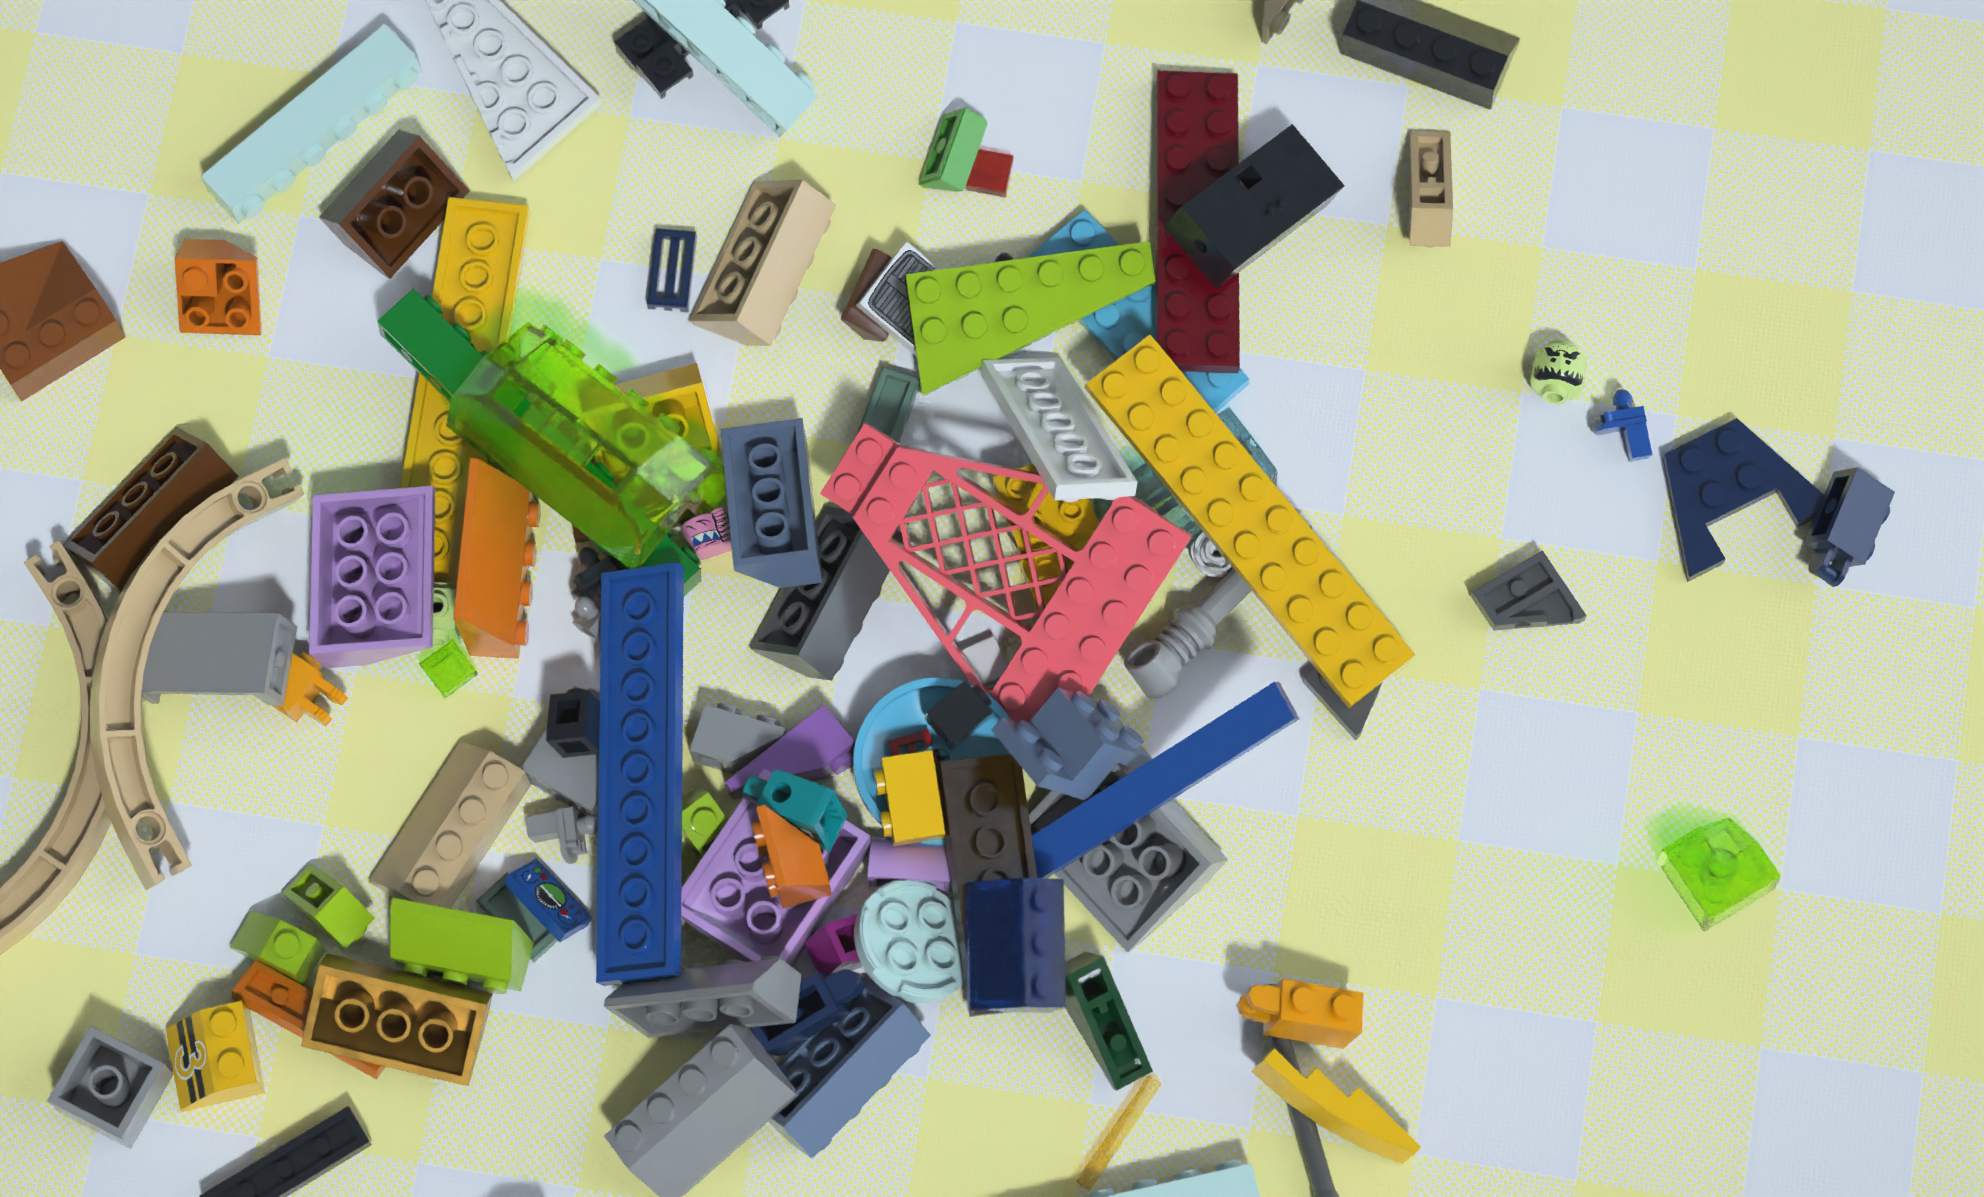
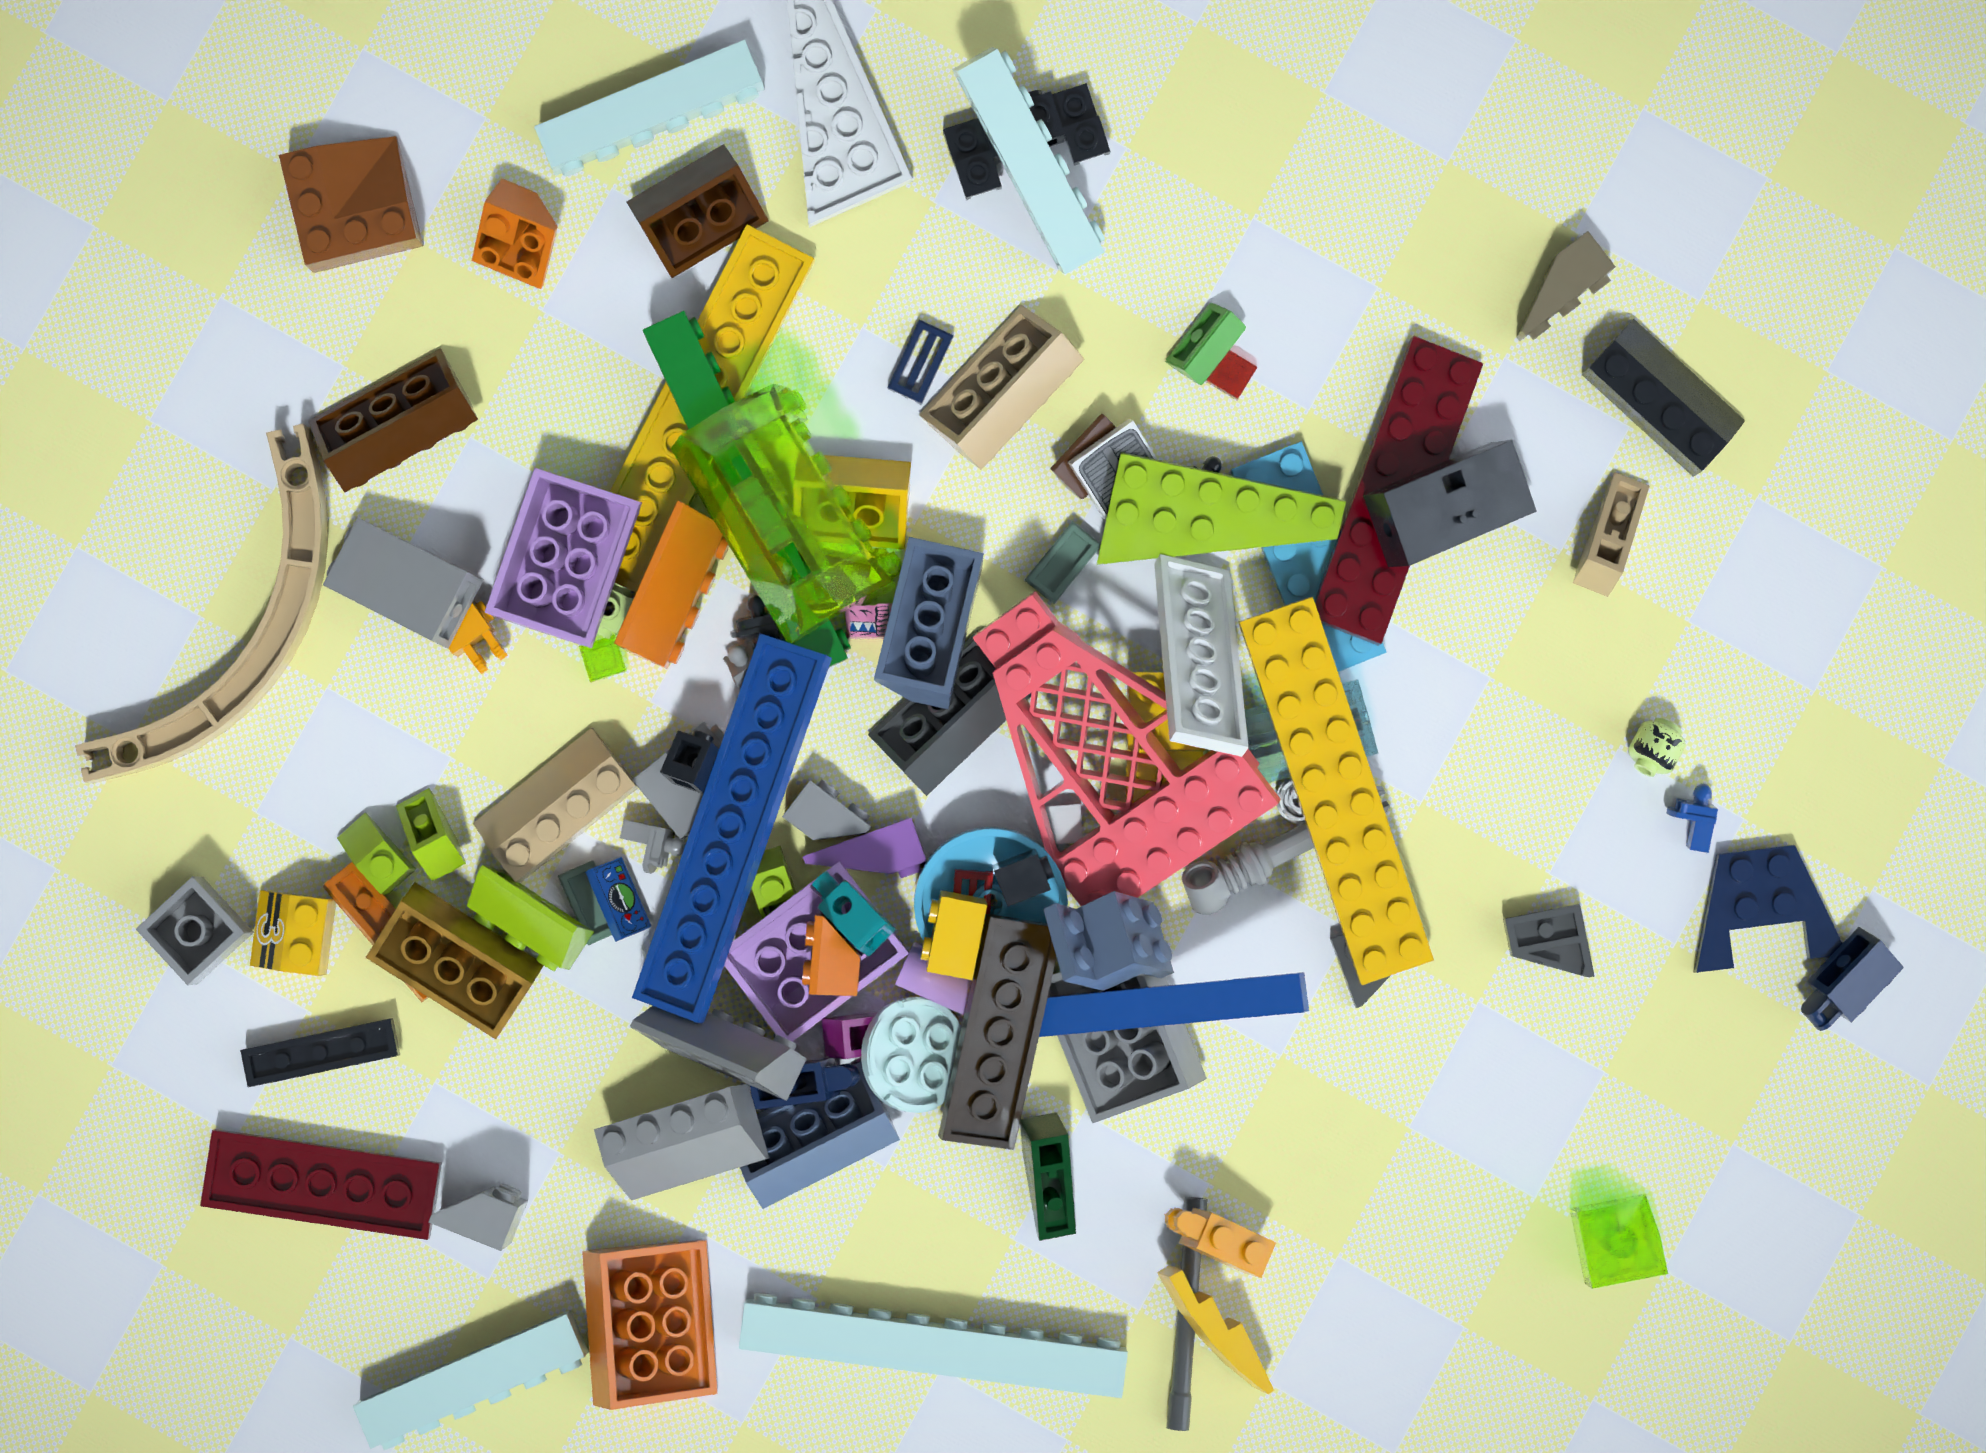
camera: 15 degrees right, 15 degrees up
(123, 656) = (333, 543): tan piece -> none
(1015, 945) = (997, 1097): clear blue slope -> none
(1118, 1132) = (1028, 1275): clear yellow bar -> none

